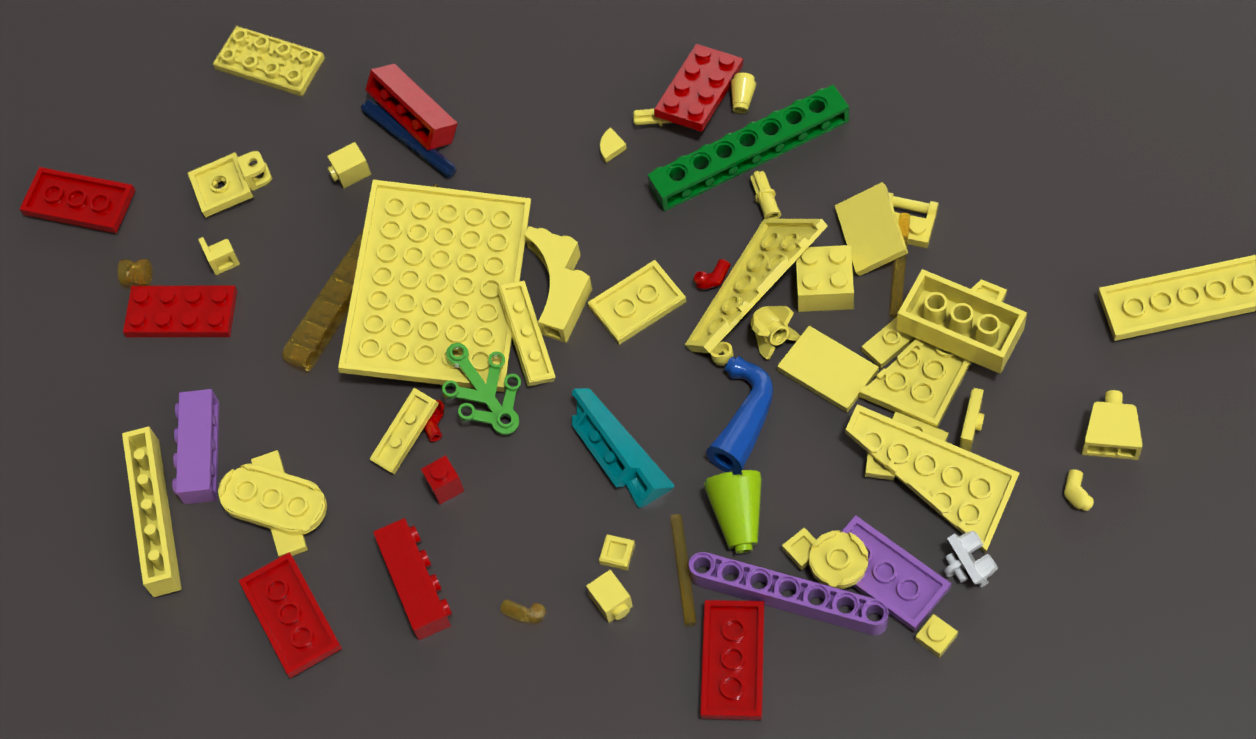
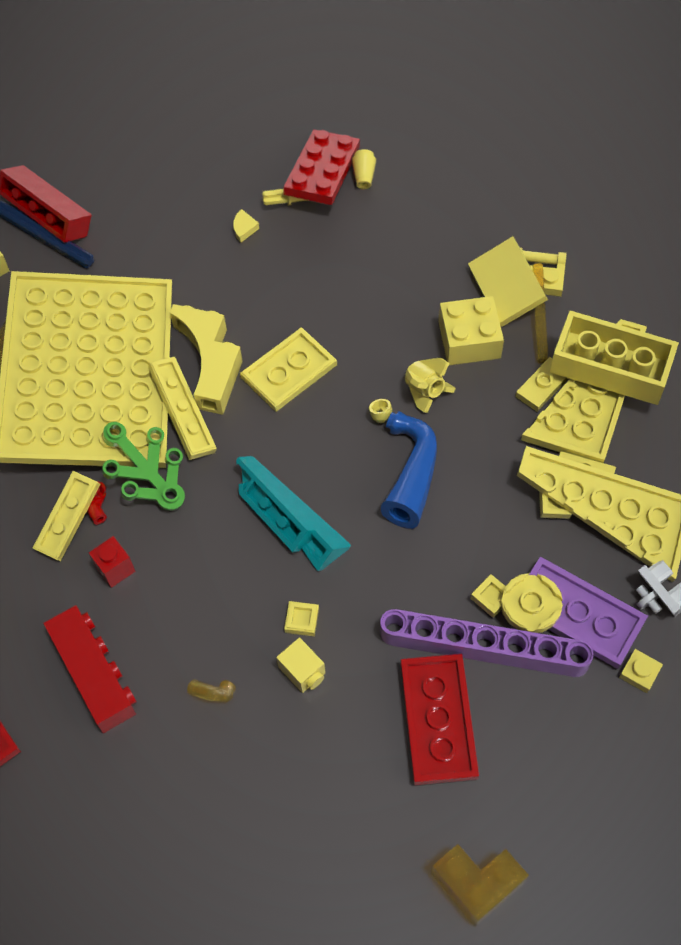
camera: 15 degrees left, 0 degrees up
(683, 570) = (373, 631): clear yellow bar -> none
(706, 281) = (355, 343): red arm -> none
(736, 507) = (420, 560): lime cone -> none
(740, 159) = (376, 217): green brick -> none
(762, 263) = (406, 324): light yellow wing -> none
(765, 195) = (400, 260): light yellow axle -> none
(827, 368) = (486, 416): light yellow tile -> none
(973, 419) = (638, 451): light yellow plate -> none

